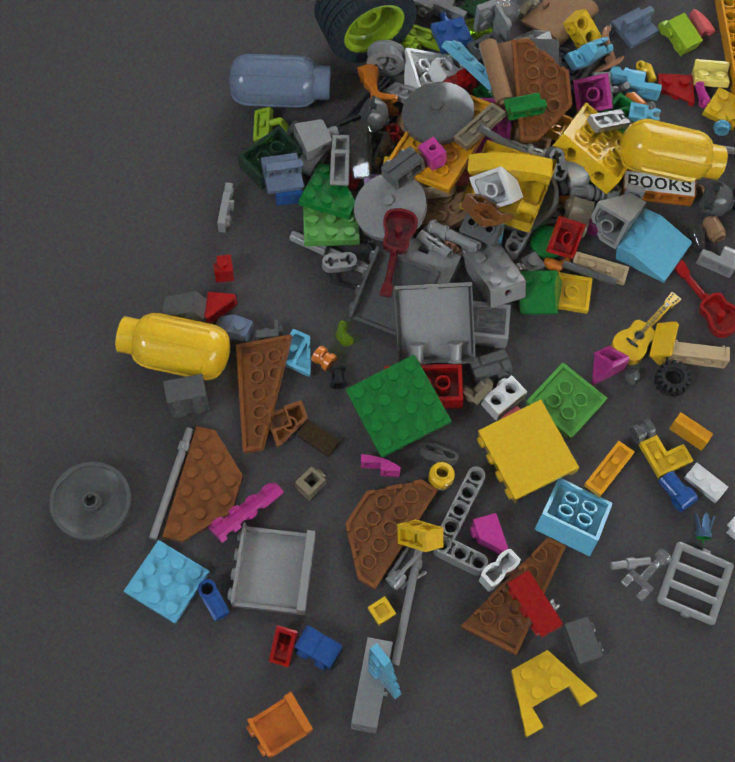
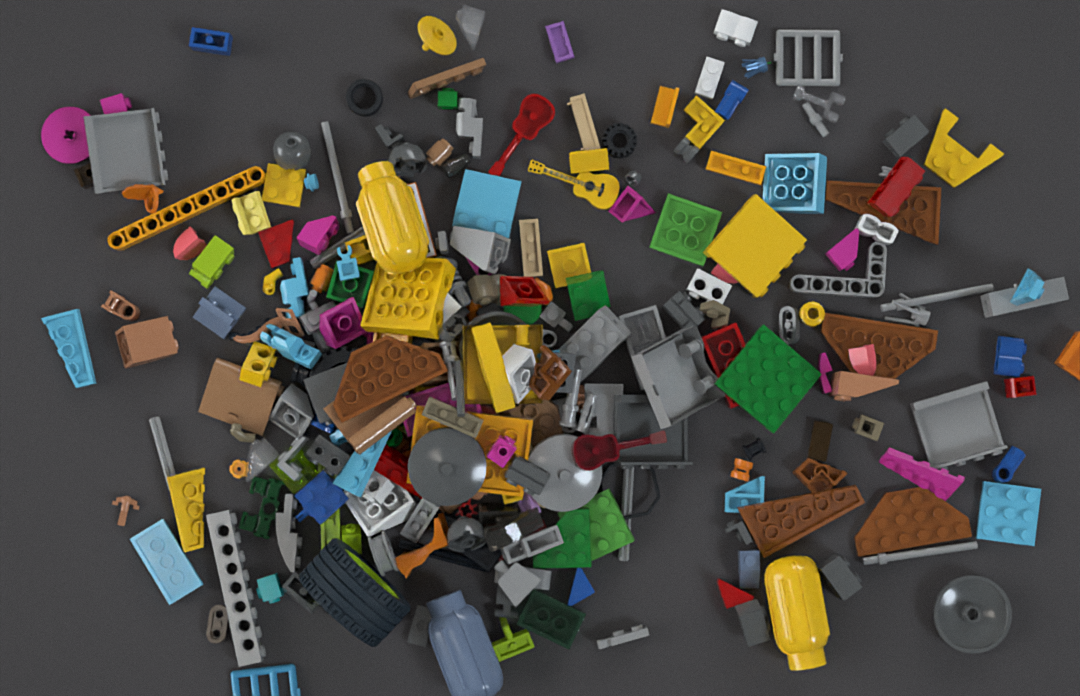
camera: 110 degrees left, 20 degrees up
(223, 269) = (691, 606): red brick -> none
(282, 173) = (571, 595): sand blue bracket -> none
(339, 262) = (643, 495): light grey beam -> none
(341, 334) = (709, 463): clear neon green arm -> none
(359, 477) = (851, 385): none -> nougat slope
(377, 503) = (863, 359): none -> coral brick
(381, 611) = (953, 316): yellow plate -> none
(420, 535) = (881, 308): yellow brick -> none
(524, 106) = (412, 380): green panel -> none
(590, 273) = (544, 255): dark grey bar -> none
(608, 121) = (377, 294): light grey plate -> none
(675, 111) = (317, 233): none -> dark pink slope
(703, 97) = (279, 213): dark pink arm -> none

